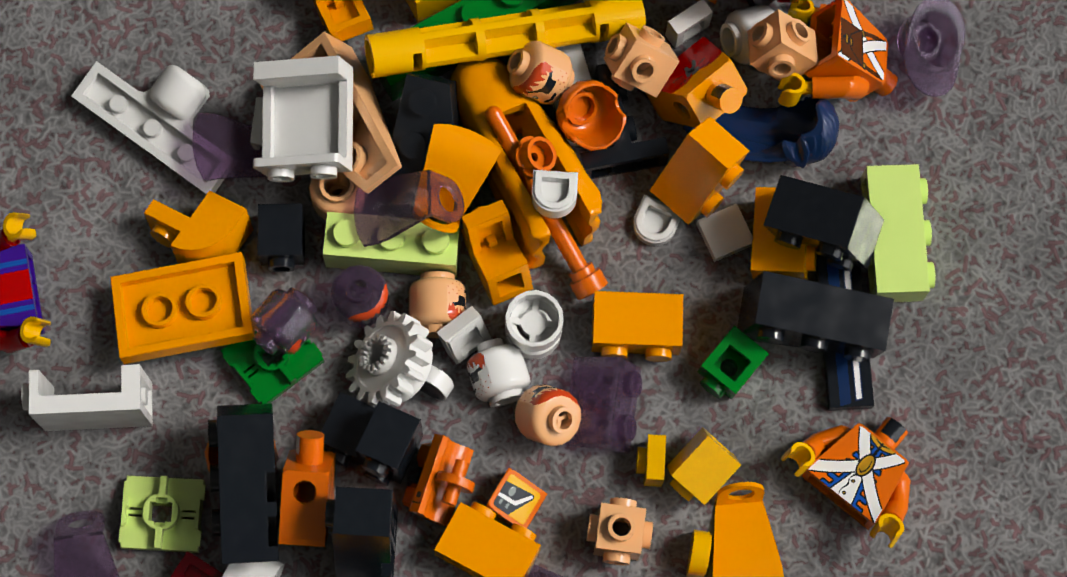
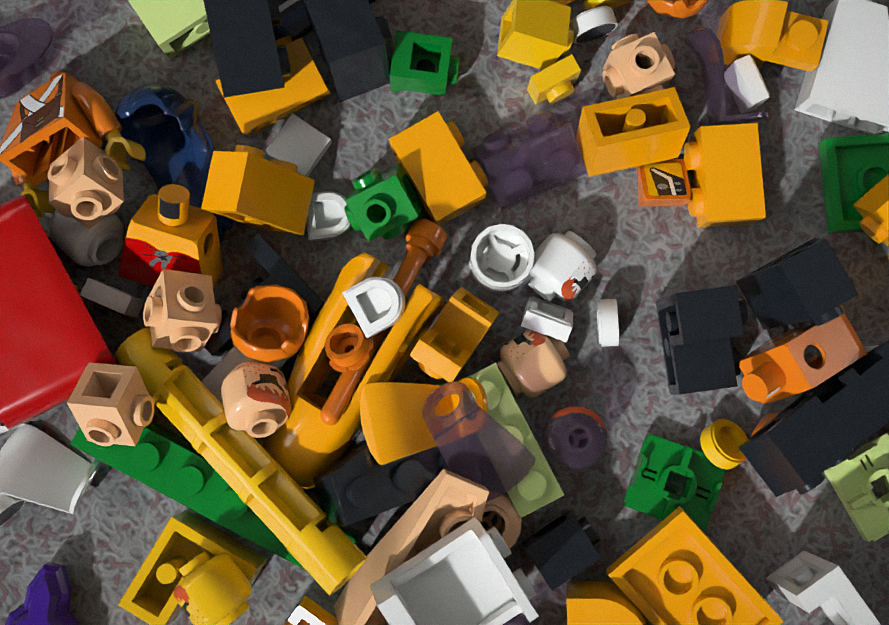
camera: 120 degrees left, 10 degrees up
(284, 321) = (653, 488): head -> none
(285, 409) = (721, 443): none -> yellow tile
(391, 360) = (620, 366): white gear -> none
(440, 481) = (695, 252): orange hips -> none
(543, 415) = (576, 195): light nougat head -> none
(571, 490) = (632, 131): none -> light orange brick
(636, 261) = (382, 203): none -> green brick
(682, 522) = (593, 24): none -> white tile

